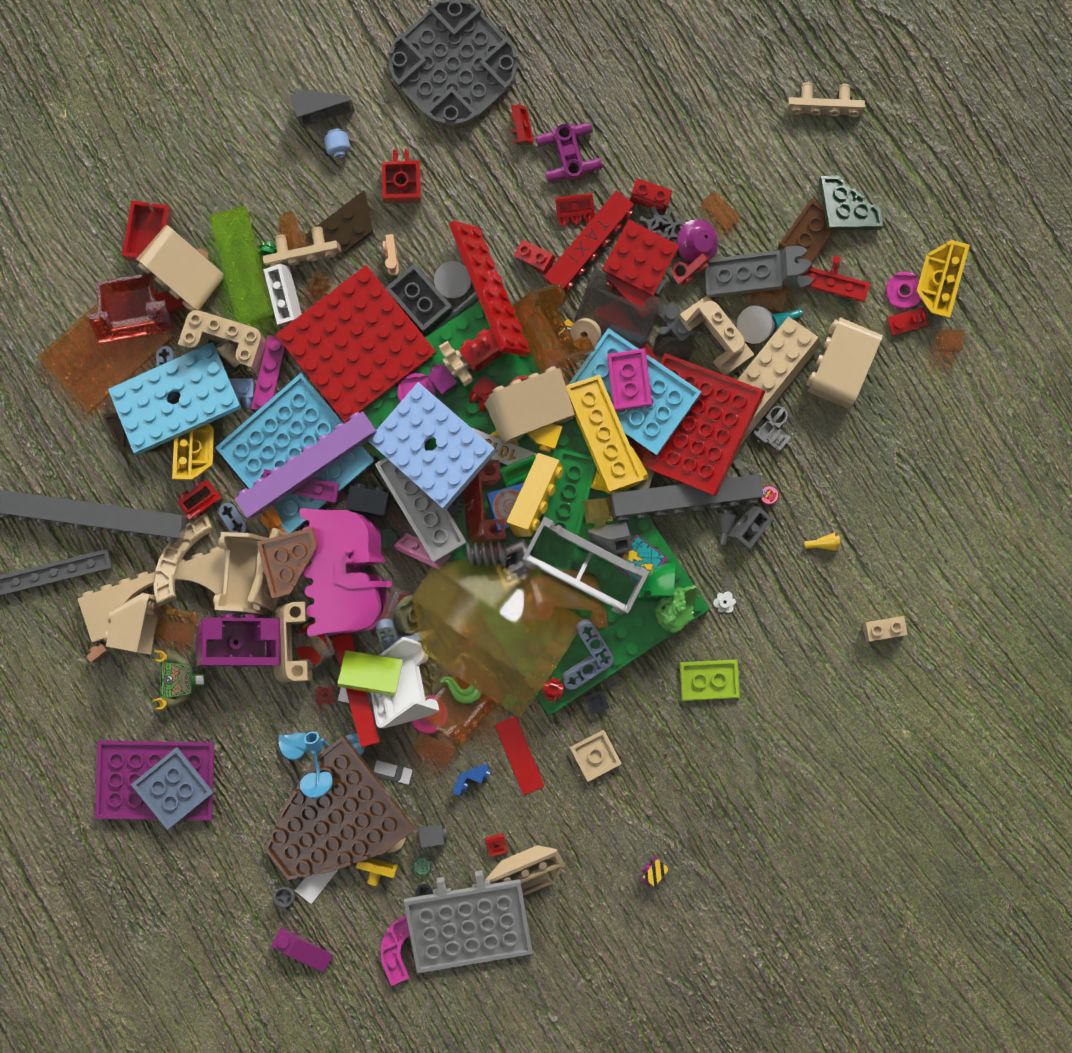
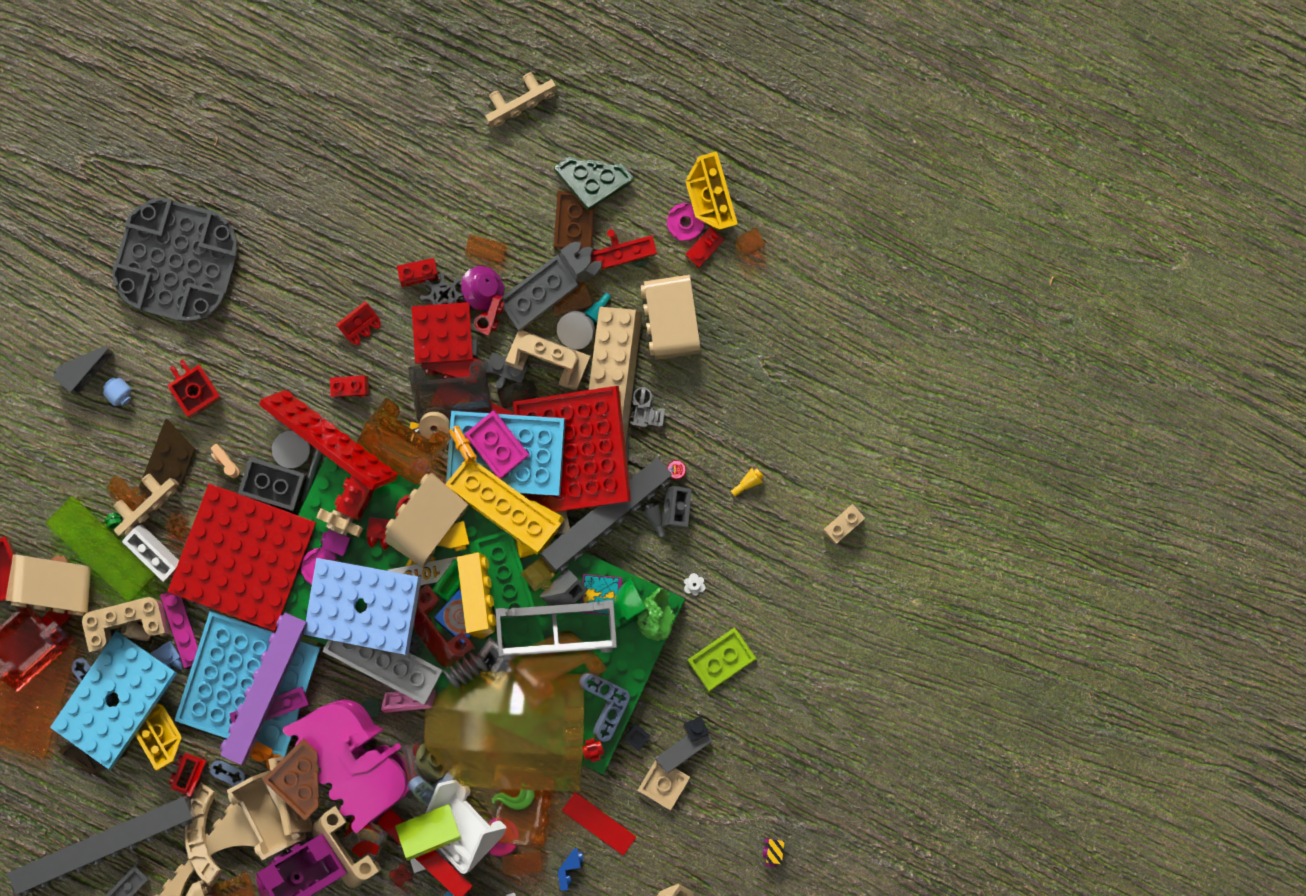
camera: 35 degrees left, 0 degrees up
(368, 501) = (336, 686): black brick -> none
(523, 127) = (266, 275): red plate -> none
(569, 152) = (323, 277): magenta piece -> none
(589, 241) = (389, 343): red brick -> none
(600, 361) = (462, 444): none -> light orange pin
(630, 737) = (681, 752): none -> dark grey tile
(651, 726) = (696, 729): none -> black plate

